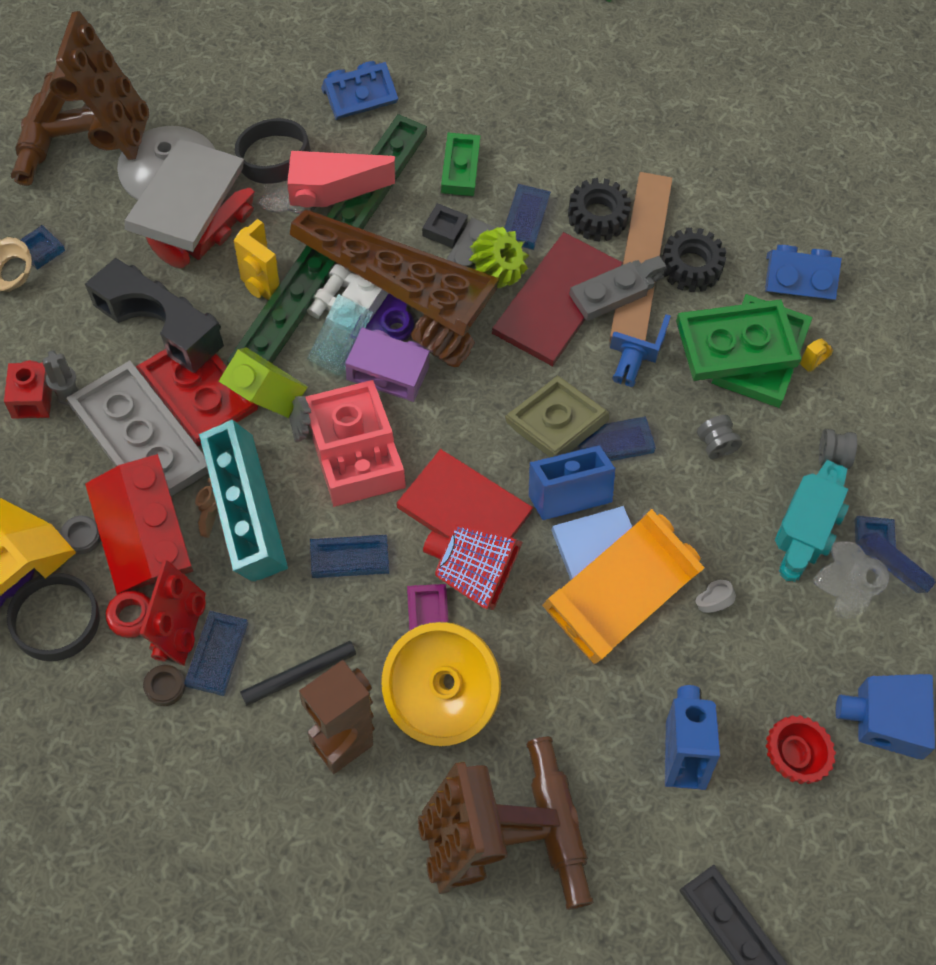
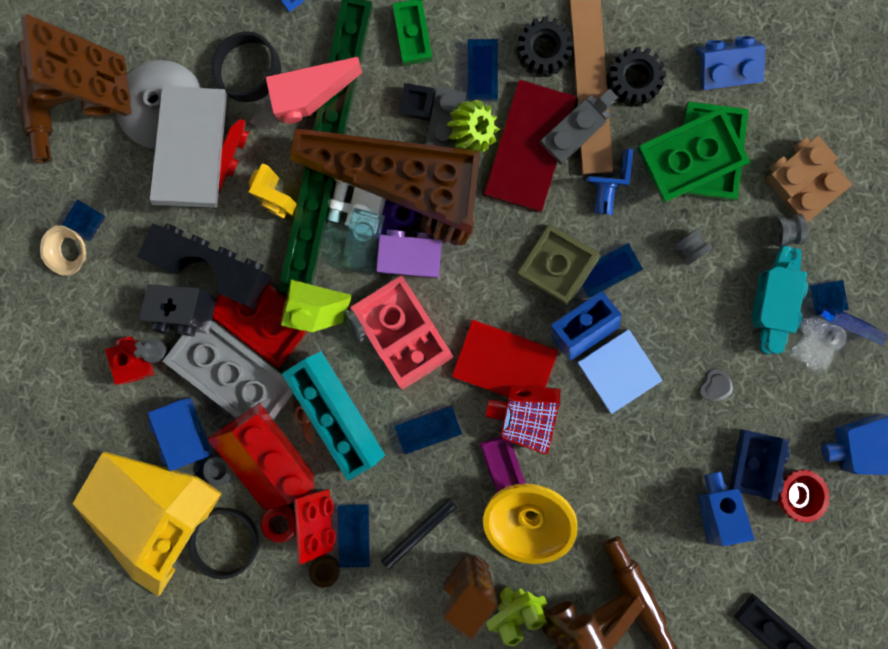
camera: 10 degrees left, 25 degrees up
(52, 478) = (179, 434): none -> blue brick
(107, 345) = (177, 309): none -> black brick
(391, 793) = (513, 611): none -> lime hips
(623, 586) = (644, 402): light orange panel -> none
(749, 697) = (759, 464): none -> dark blue bracket
(815, 354) = (757, 142): yellow tile -> none
(870, 403) = (808, 178): none -> medium nougat plate

